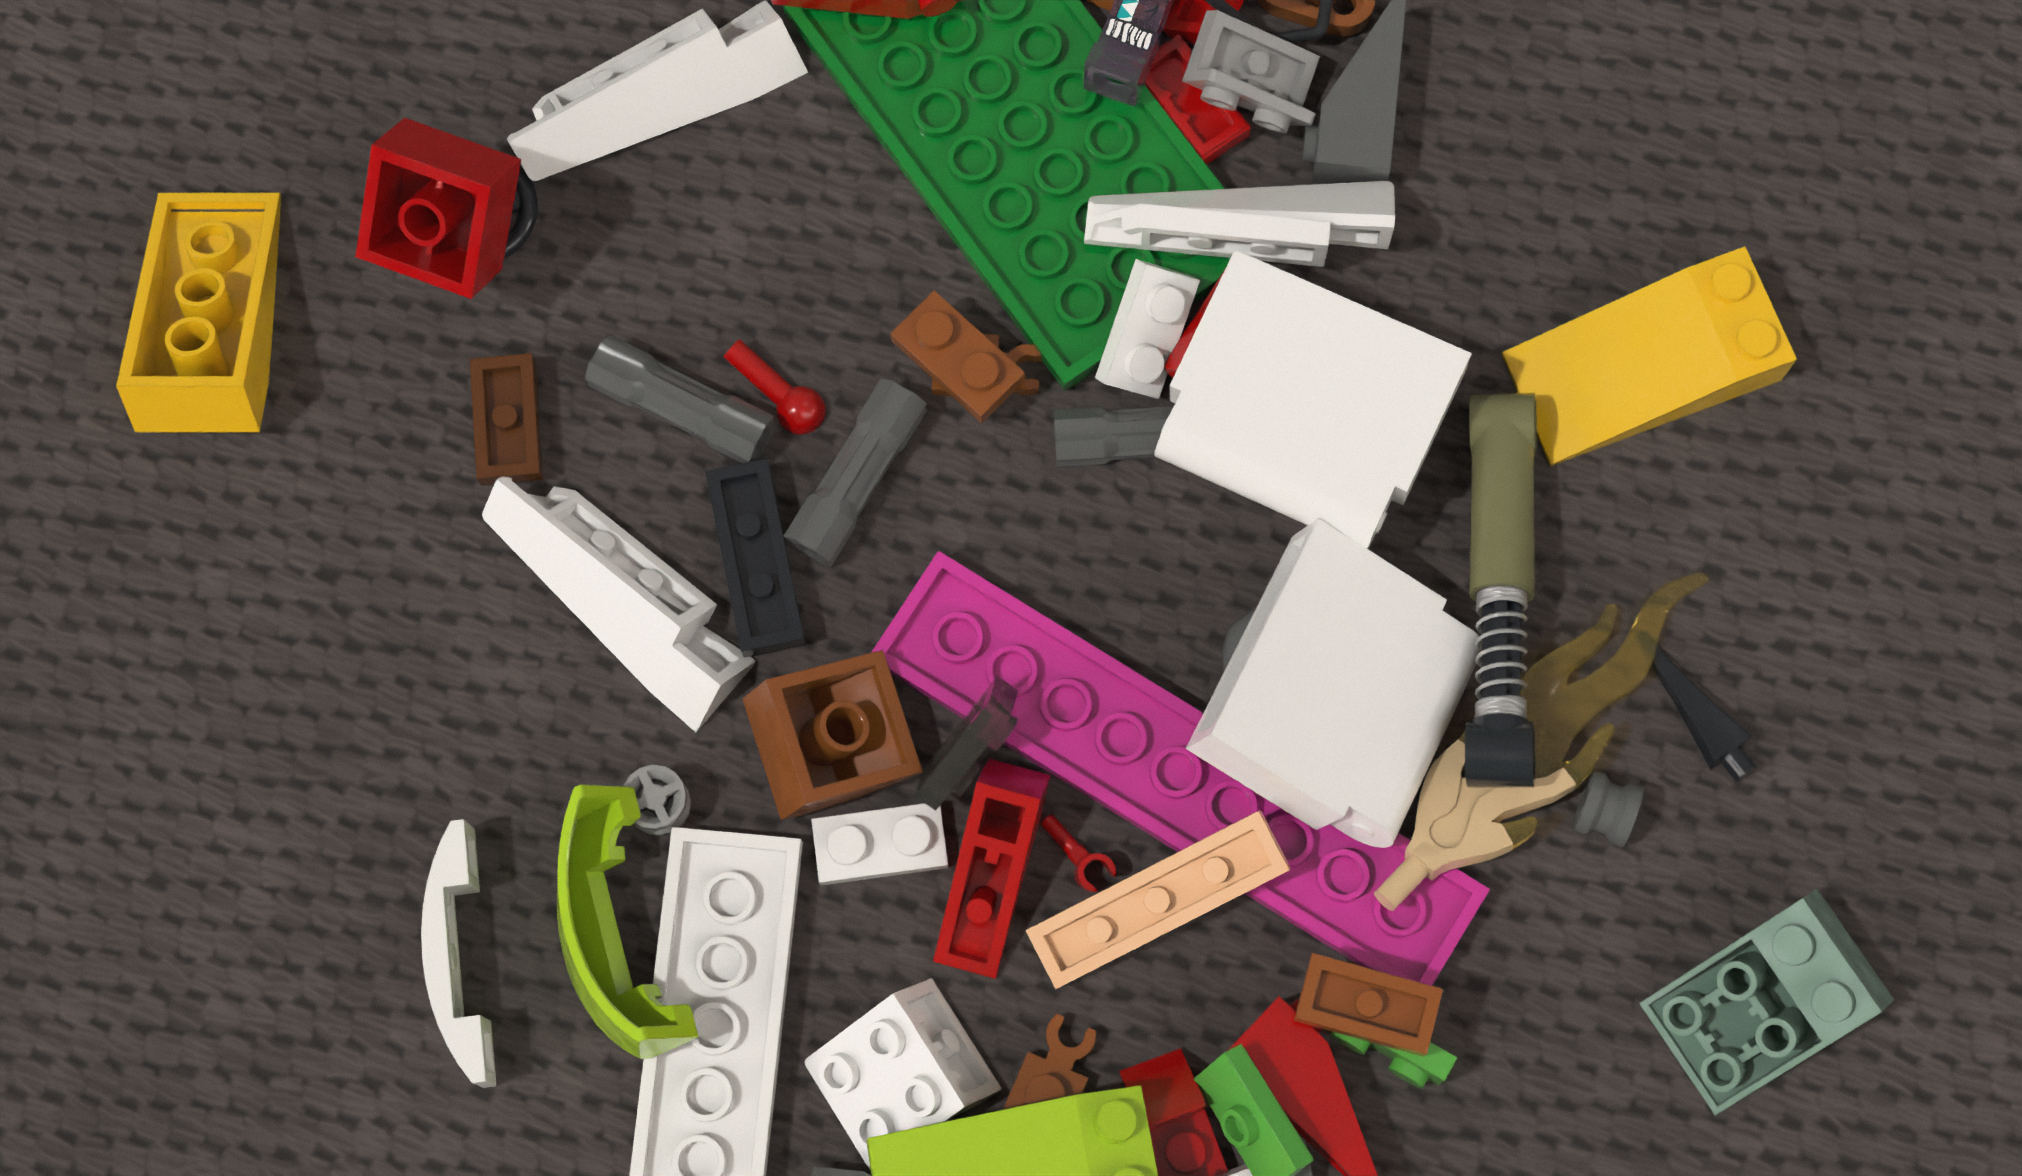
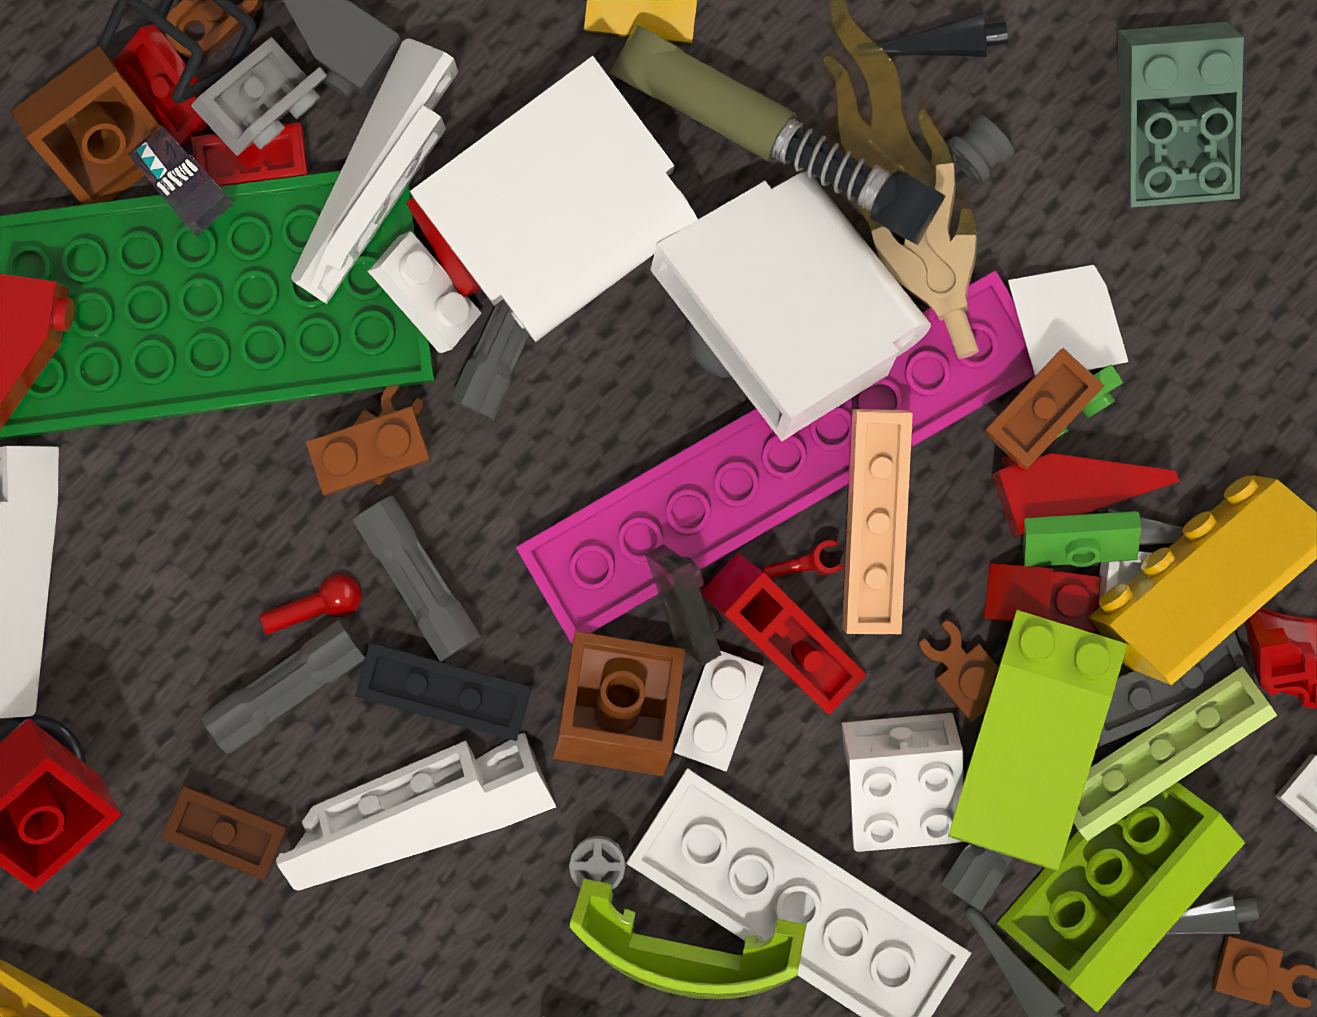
camera: 65 degrees left, 10 degrees up
(1487, 996) = (1070, 313): none -> white sticker

